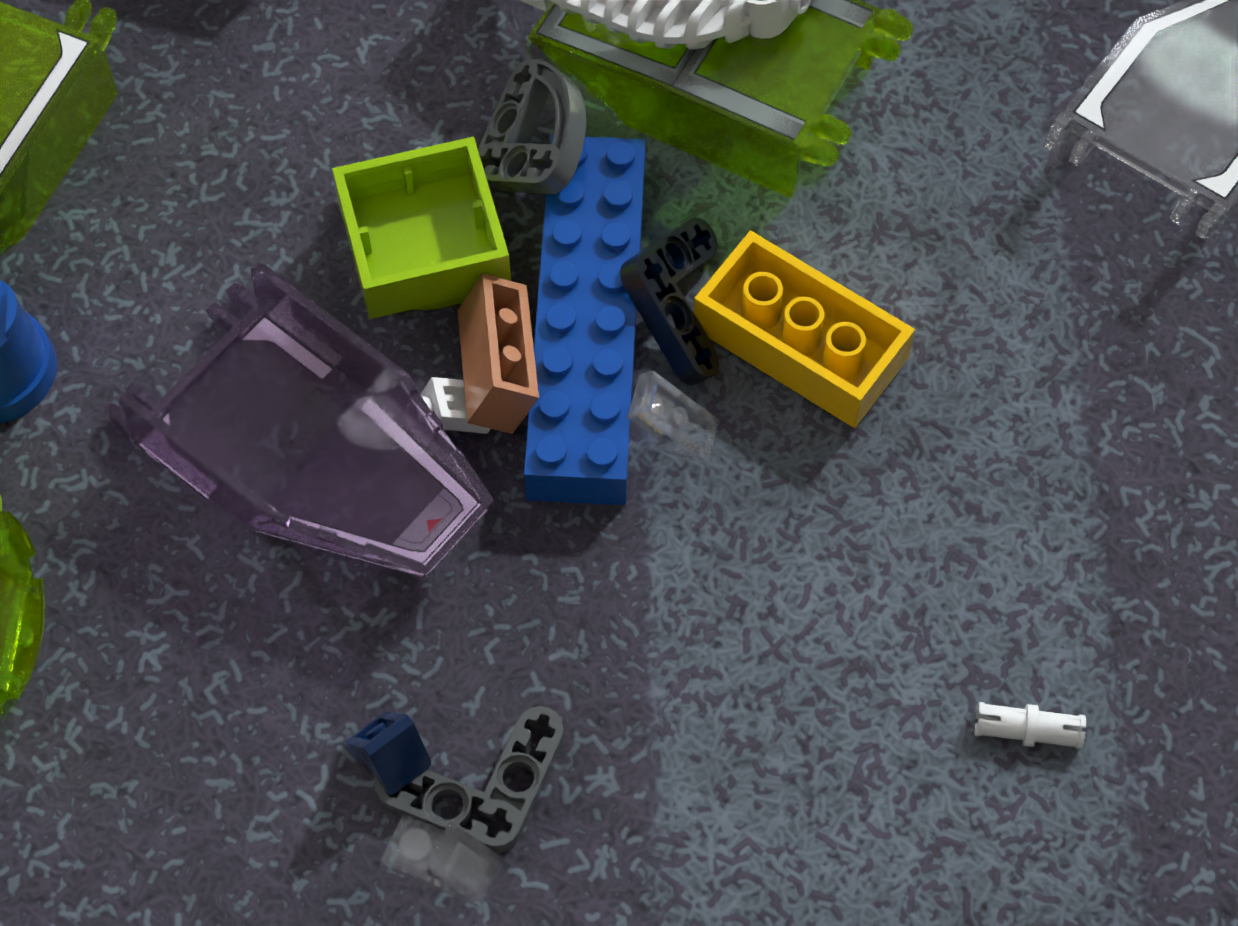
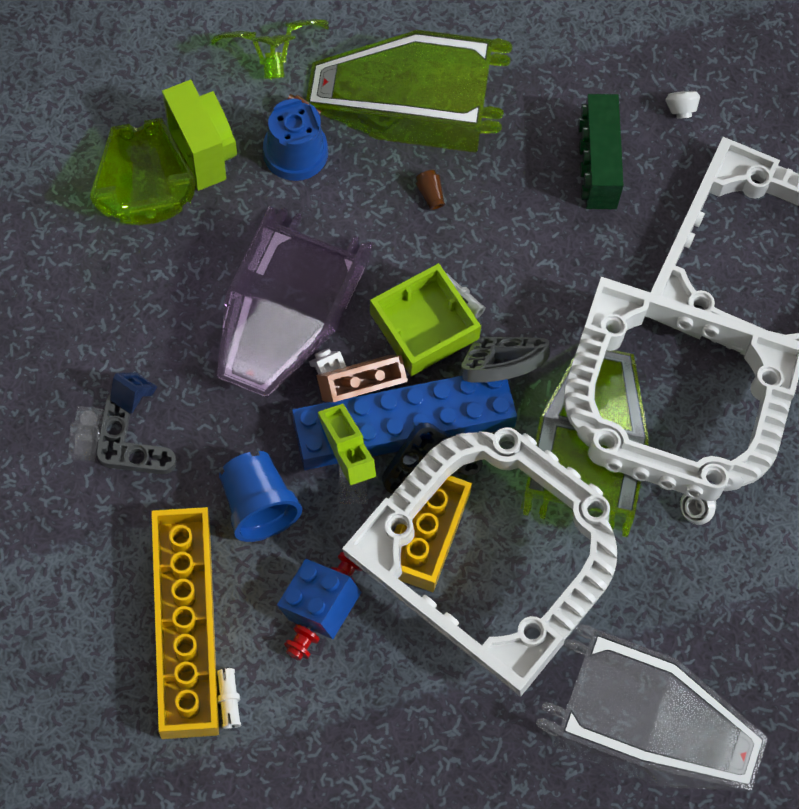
camera: 70 degrees right, 5 degrees up
(164, 171) = (430, 188): none -> reddish brown cone
(631, 388) = (347, 444): none -> lime slope
(671, 572) = (258, 497): none -> blue piece
(853, 386) = (513, 656): none -> white arch
(880, 758) = (184, 623): none -> yellow brick
(893, 524) = (318, 602): none -> blue brick

